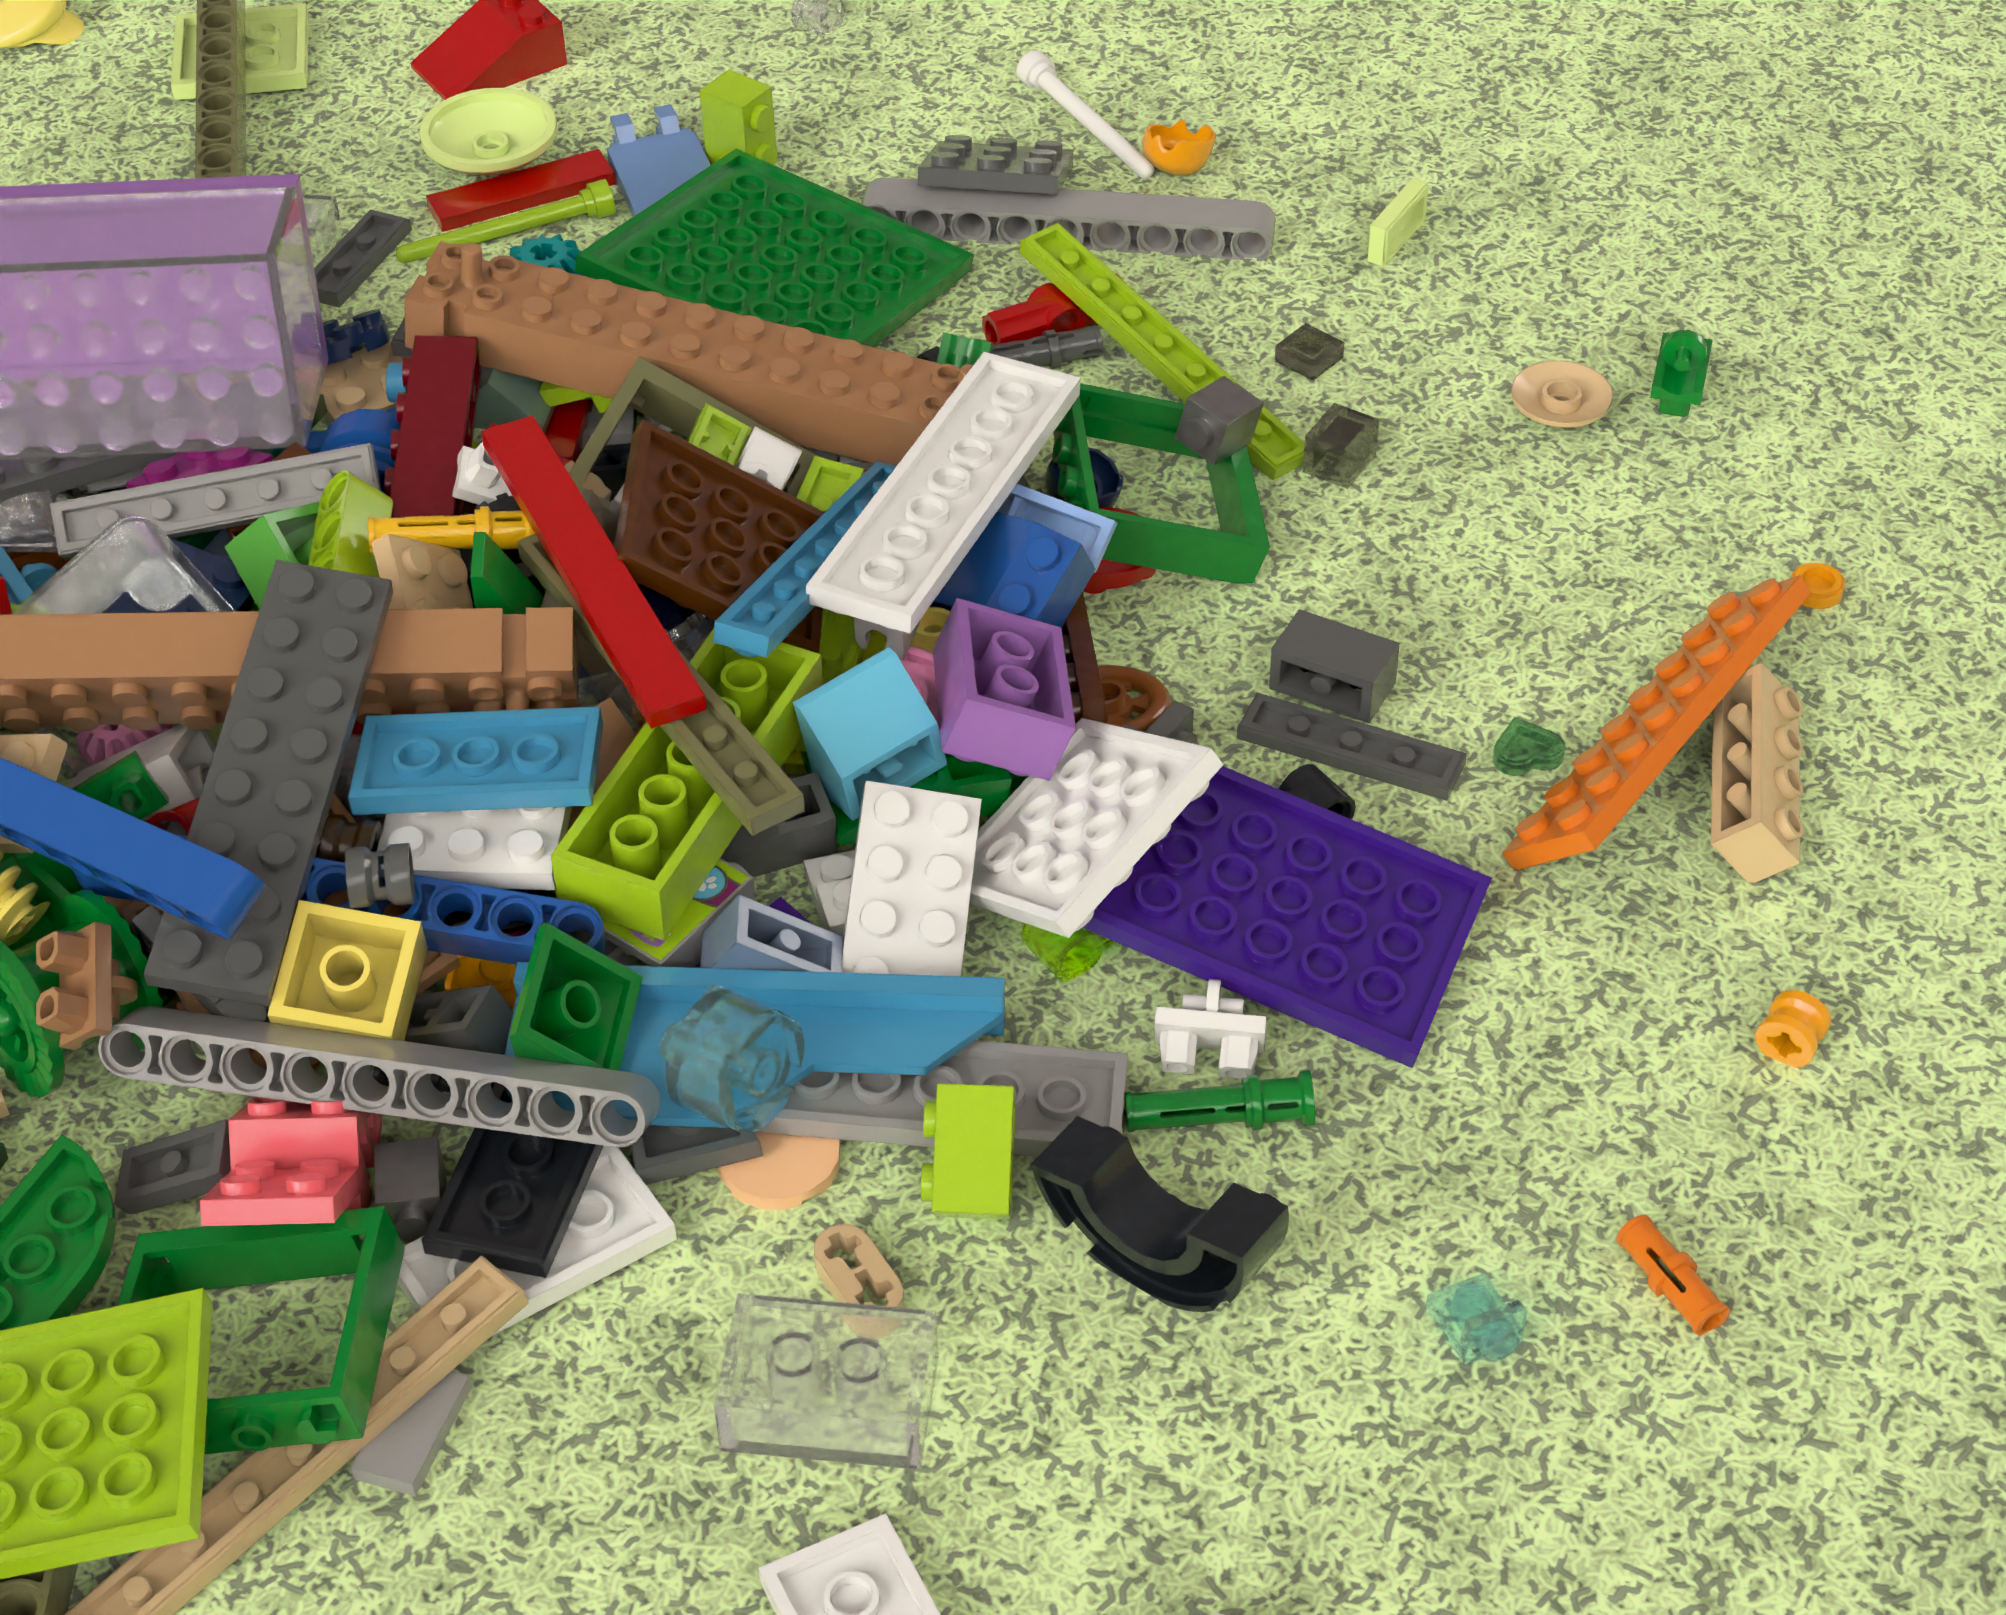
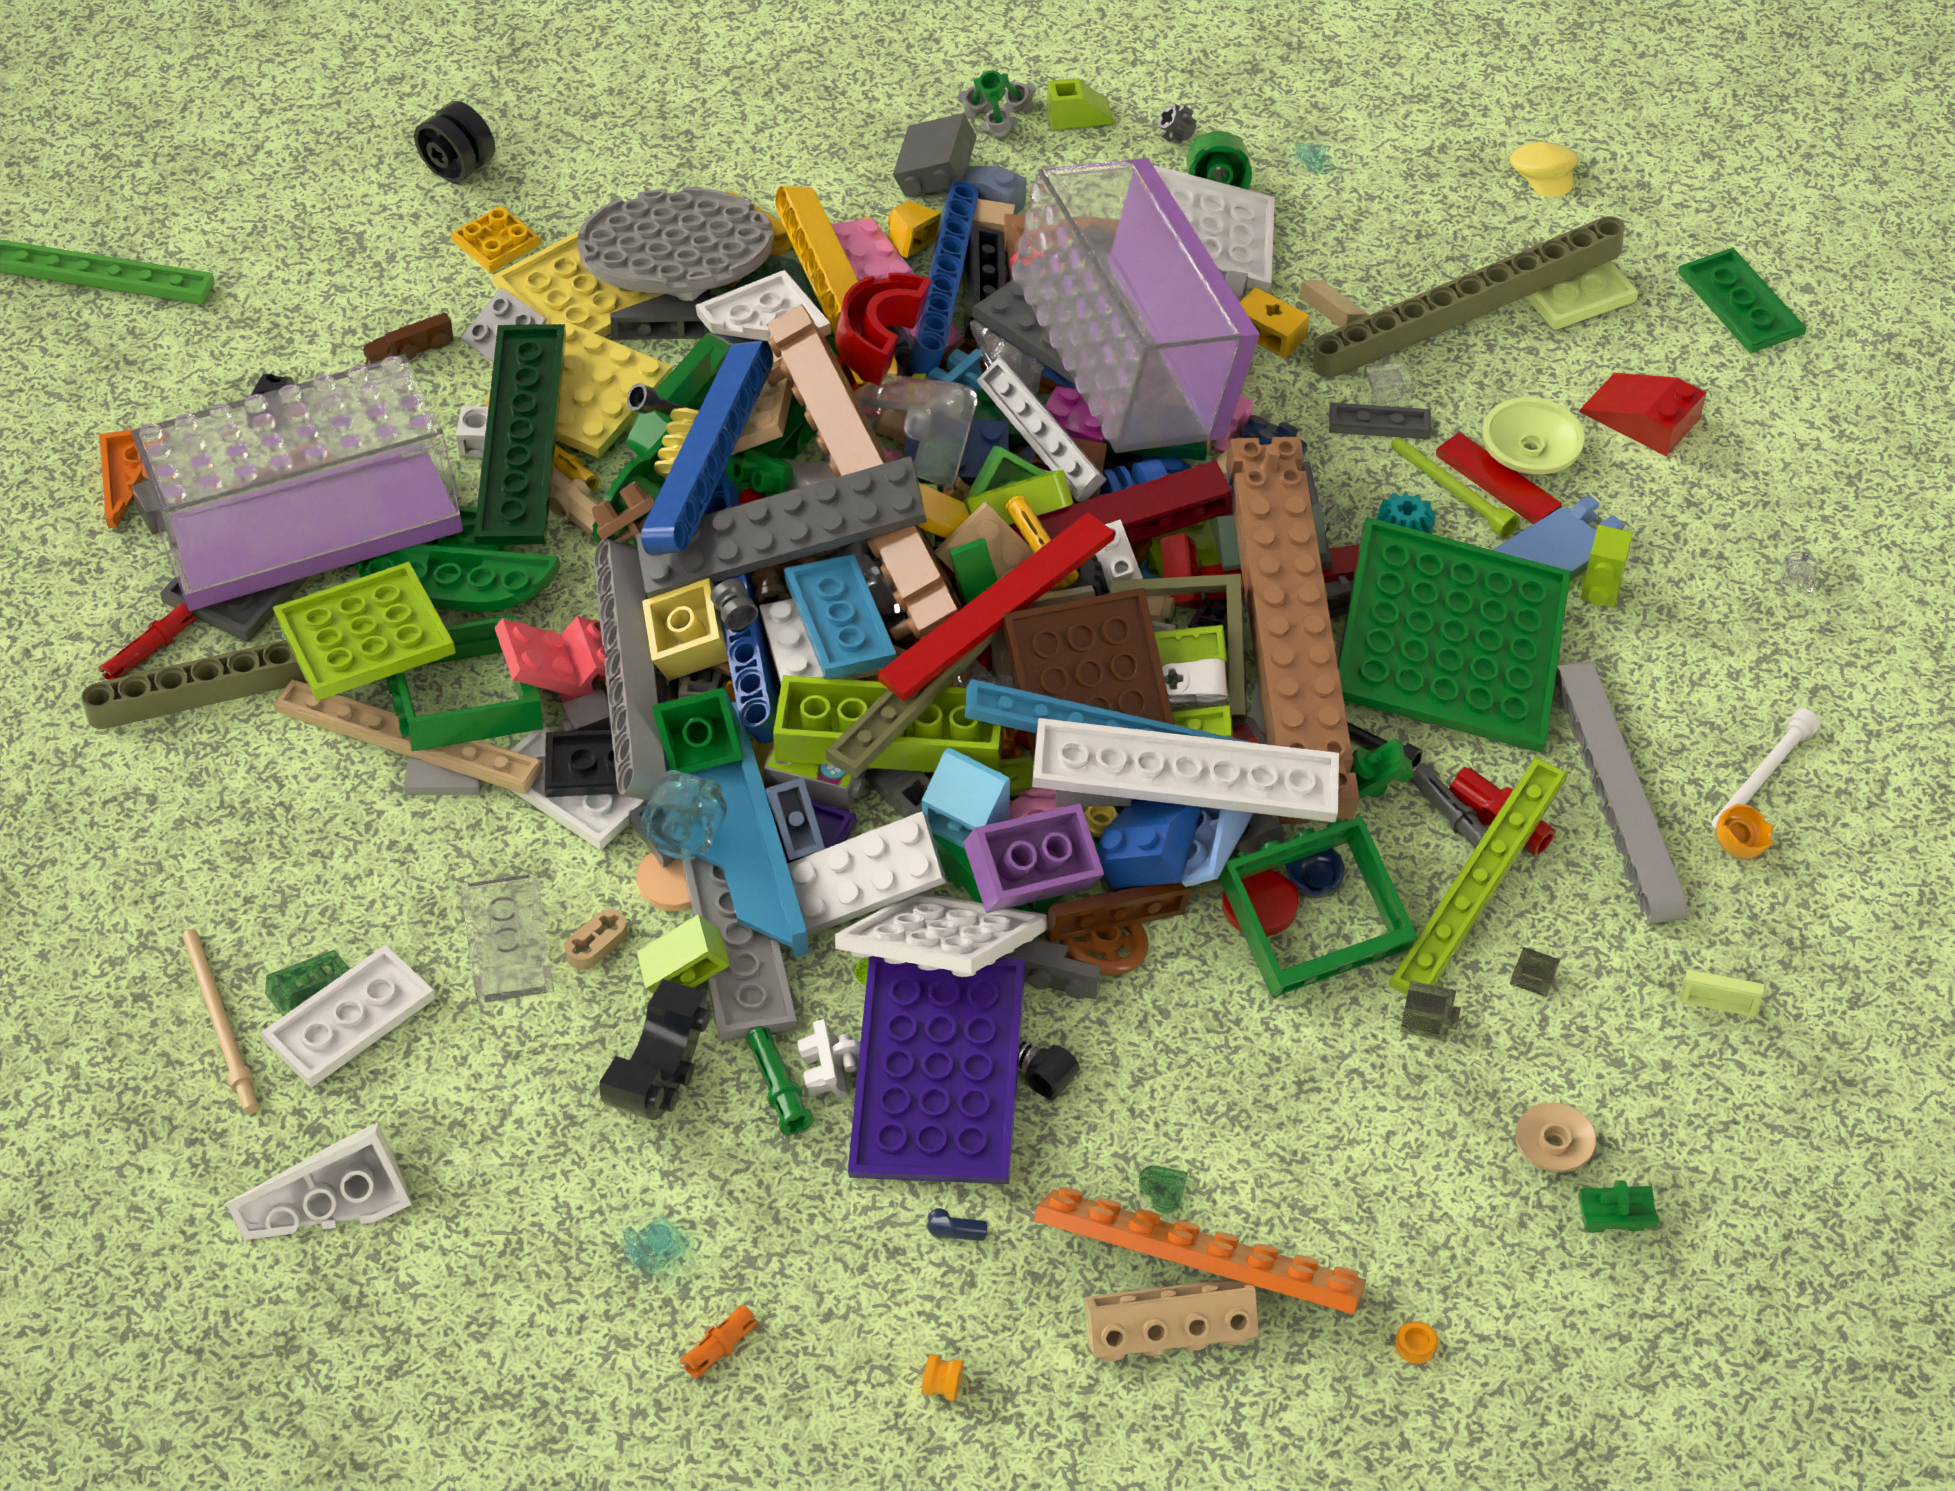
camera: 70 degrees right, 5 degrees up
(173, 1168) = (564, 610): dark grey plate -> none
(996, 165) = (1647, 728): dark grey plate -> none
(1219, 420) = (1375, 917): flat silver brick -> none
(1341, 662) = (1183, 1052): dark grey brick -> none
(1352, 746) = (1125, 1086): dark grey tile -> none
(1544, 964) = (944, 1226): none -> dark blue arm

